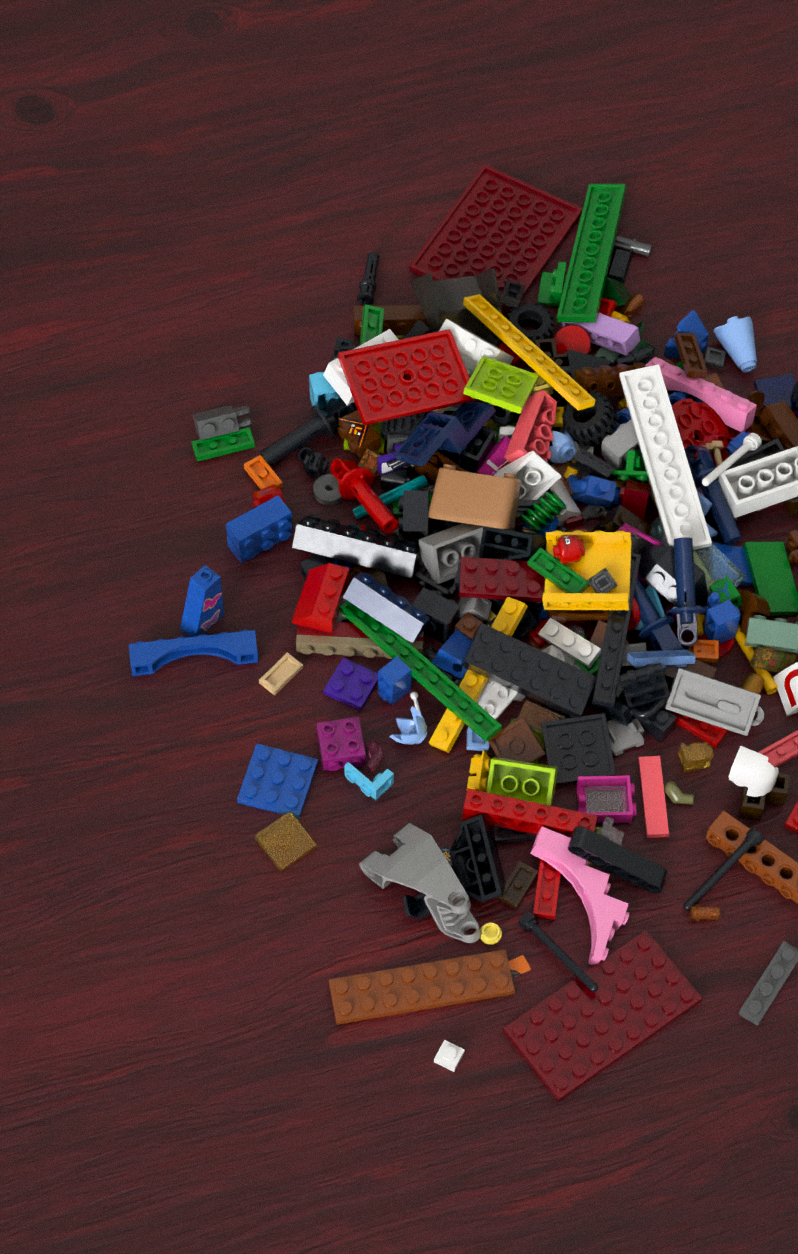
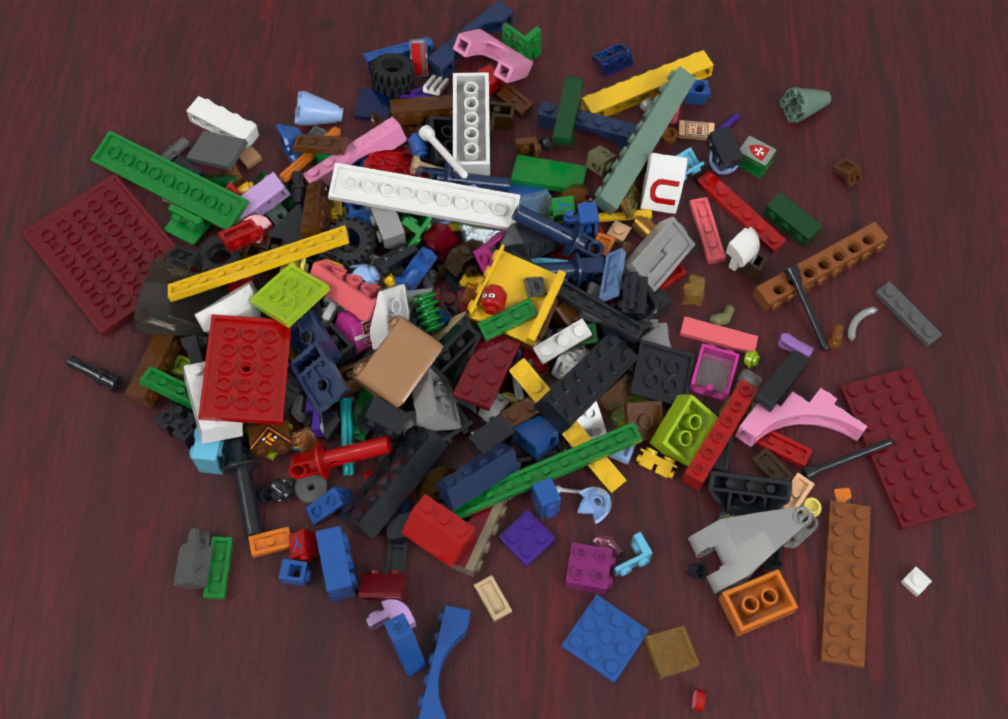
camera: 70 degrees left, 5 degrees up
(233, 596) = (391, 609): none -> lavender brick
(240, 501) = (289, 568): none -> blue brick
(246, 876) = (698, 700): none -> red tile
(253, 575) = (383, 586): none -> dark red slope
(283, 582) = (396, 557): none -> black tile
(319, 506) = (328, 503): none -> blue bracket
(362, 901) = (757, 603): none -> orange brick
(371, 842) = (696, 571): none -> black hinge
(498, 913) = (800, 488): none -> light nougat plate
(555, 328) = (241, 235): none -> red bracket
(637, 833) = (751, 359): none -> lime plate
(650, 279) = (217, 150): none -> dark grey tile
(659, 310) = (250, 157): none -> medium nougat tile
(672, 352) = (304, 159): none -> orange axle
(674, 874) = (790, 343): none -> medium lavender bar
(685, 272) = (220, 121): none -> white brick
(735, 666) = (619, 231): none -> light nougat plate
(737, 930) = (855, 321): none -> light grey piece

